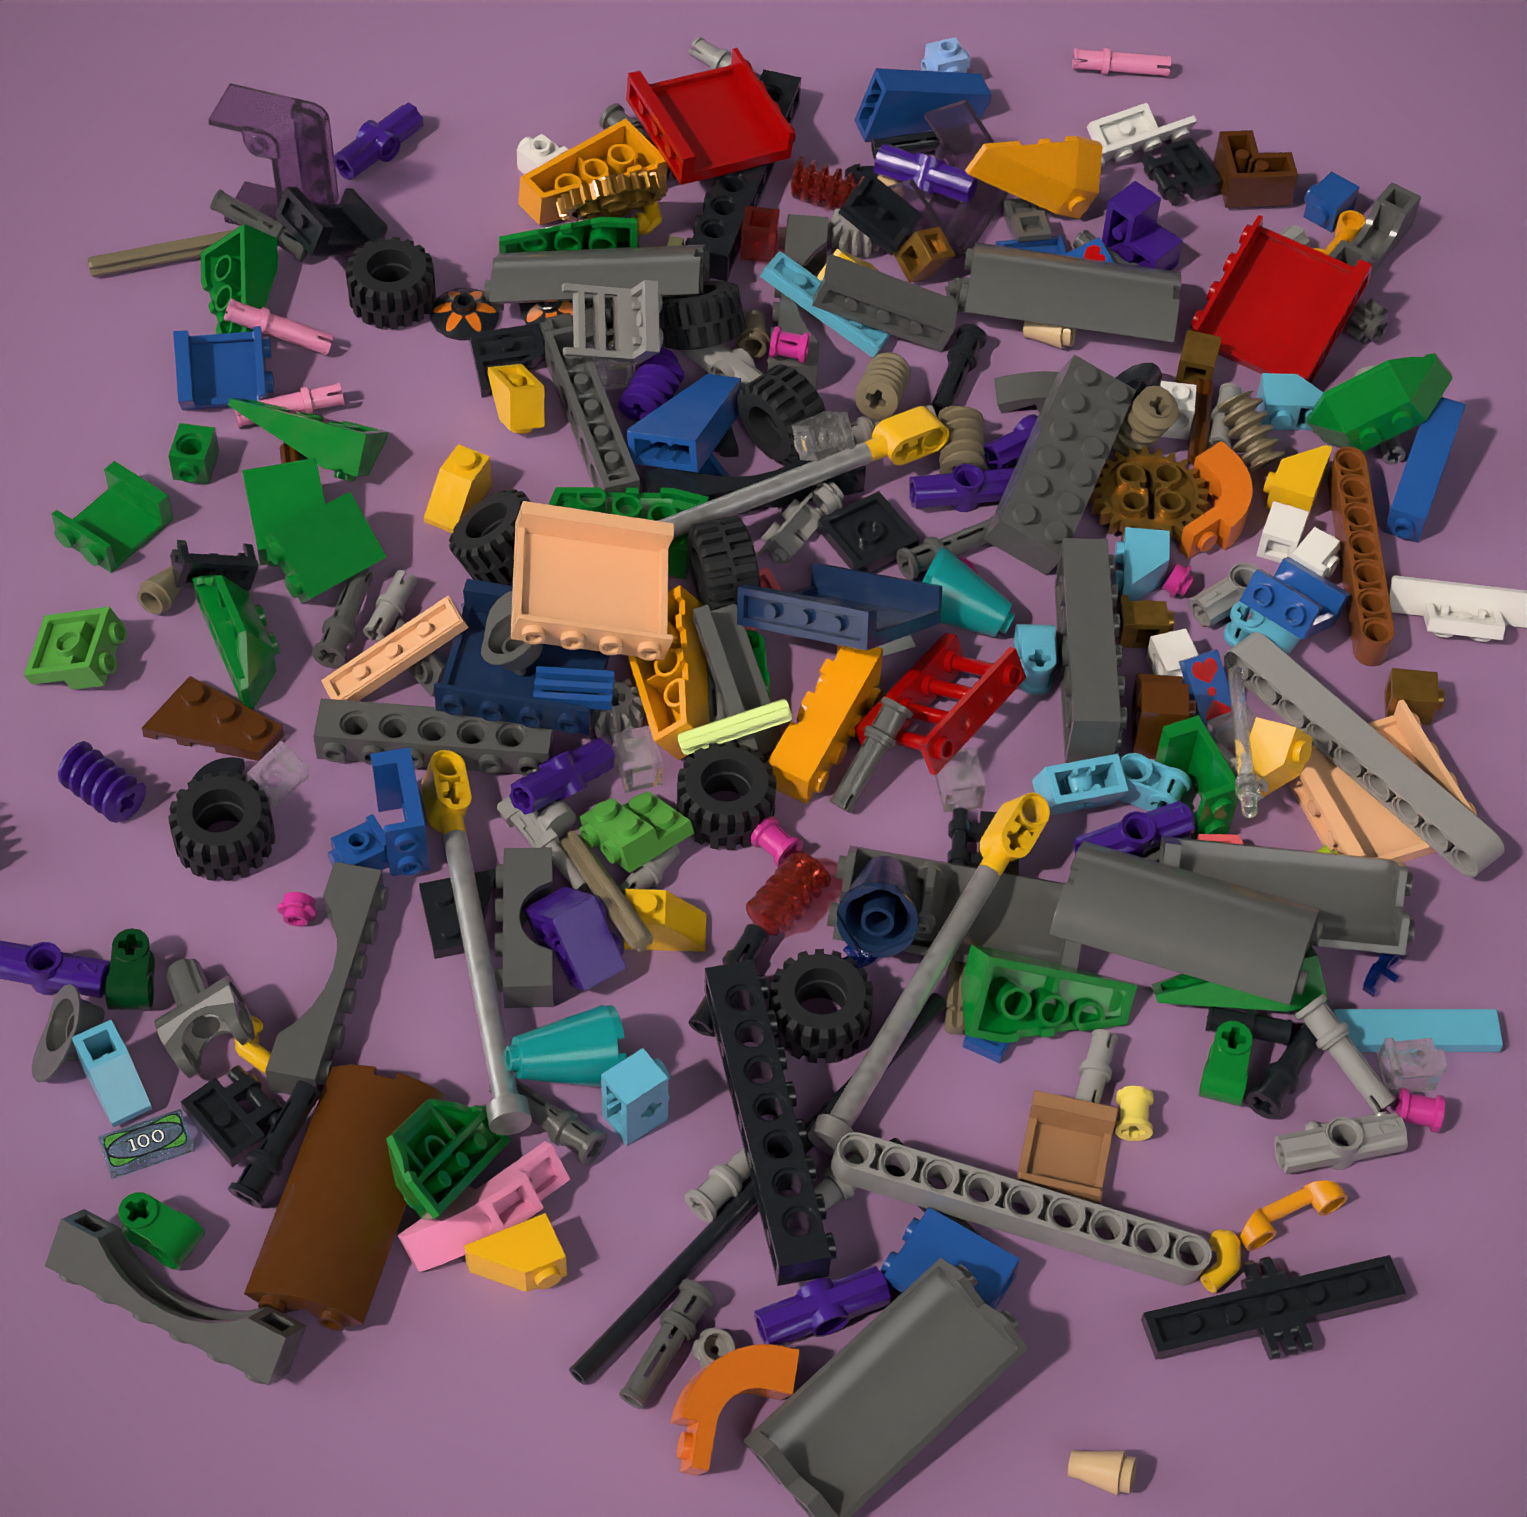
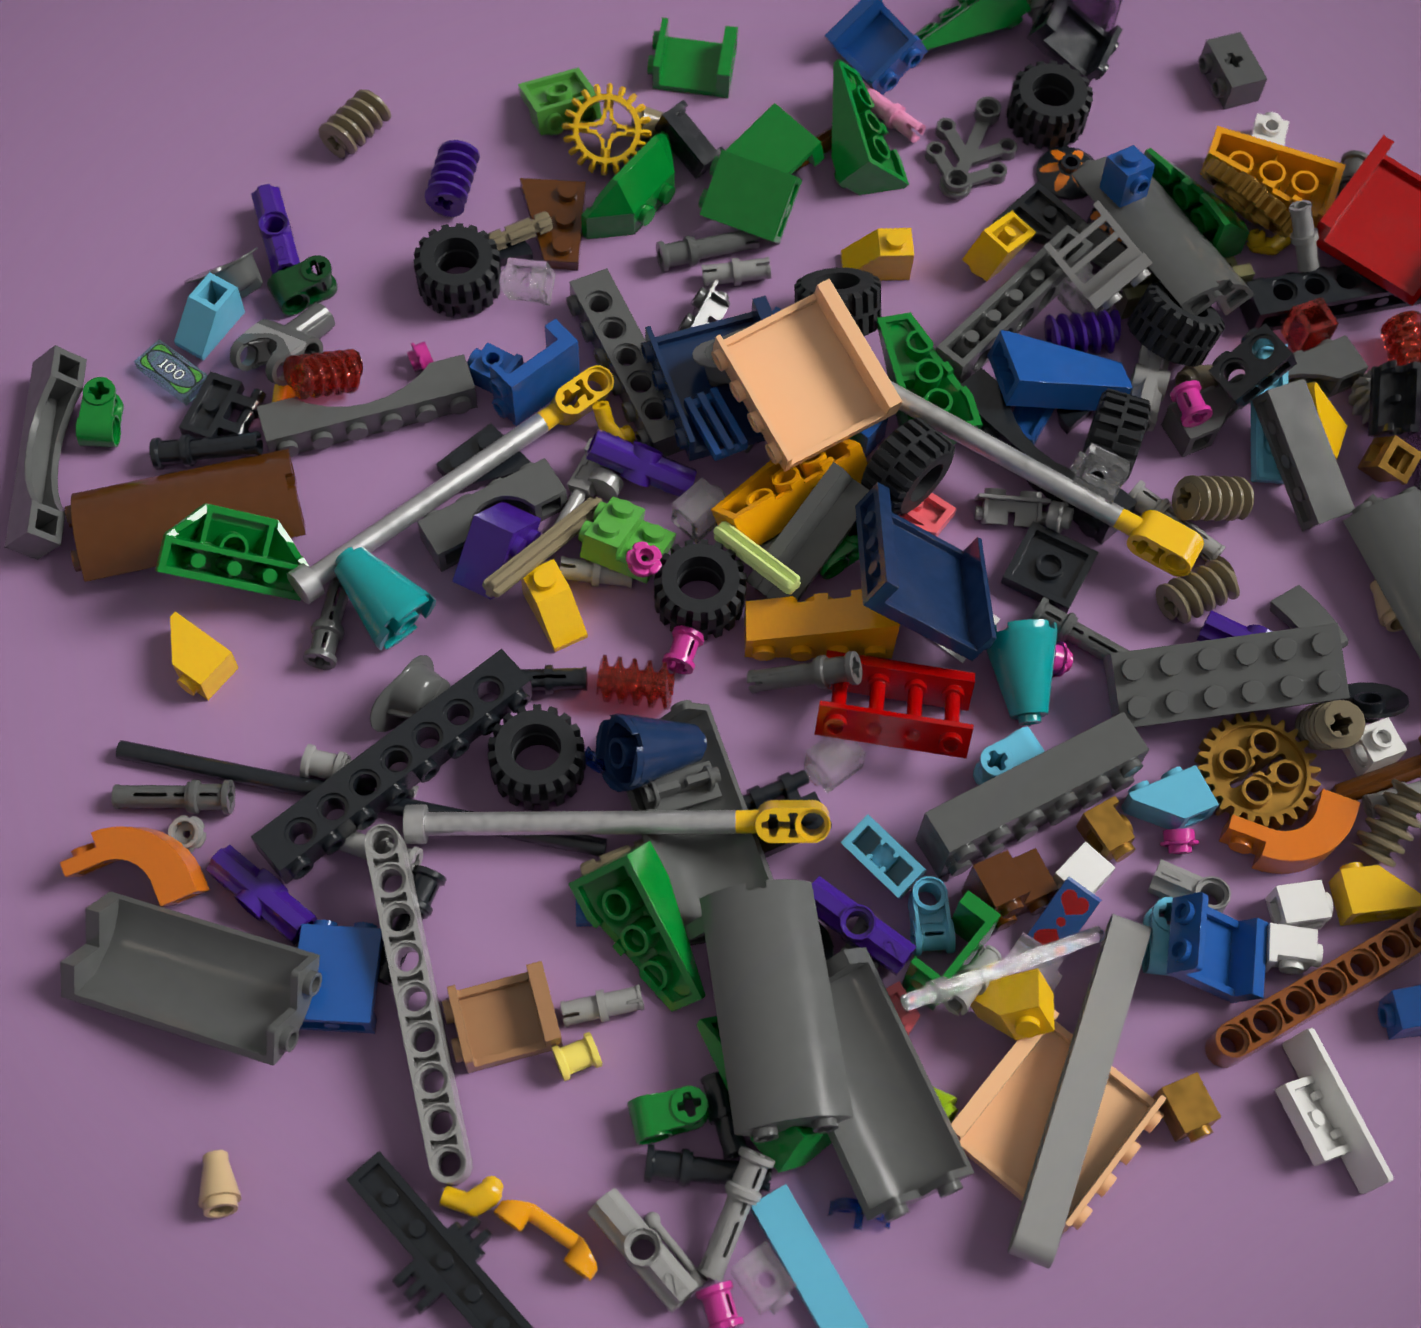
camera: 60 degrees right, 10 degrees up
(135, 613) = (580, 127): none -> yellow gear
(193, 453) = (788, 74): green brick -> none
(216, 747) = (522, 230): none -> dark tan axle
(269, 992) = (323, 373): none -> clear red piece
(278, 326) = (938, 45): bright pink pin -> none
(378, 141) = (1190, 22): dark purple piece -> none
(396, 652) = (682, 294): light nougat tile -> none
(414, 394) = (957, 181): none -> dark grey plant
(452, 142) = (1232, 70): none -> dark grey brick
(490, 789) = (606, 422): none -> yellow arm
(494, 1206) = (226, 617): bright pink slope -> none
(541, 257) = (1126, 176): none -> blue brick
(625, 713) = (735, 469): light grey gear -> none
(635, 1096) = (367, 660): medium azure brick -> none
(680, 814) = (637, 565): none -> dark pink plate
(683, 180) = (1304, 236): none -> light grey pin
(699, 1069) = (407, 694): none -> dark grey piece
(797, 282) = (1258, 372): none -> black brick
(960, 489) = (1140, 601): dark purple piece -> none
(961, 360) = (1298, 549): black pin -> none

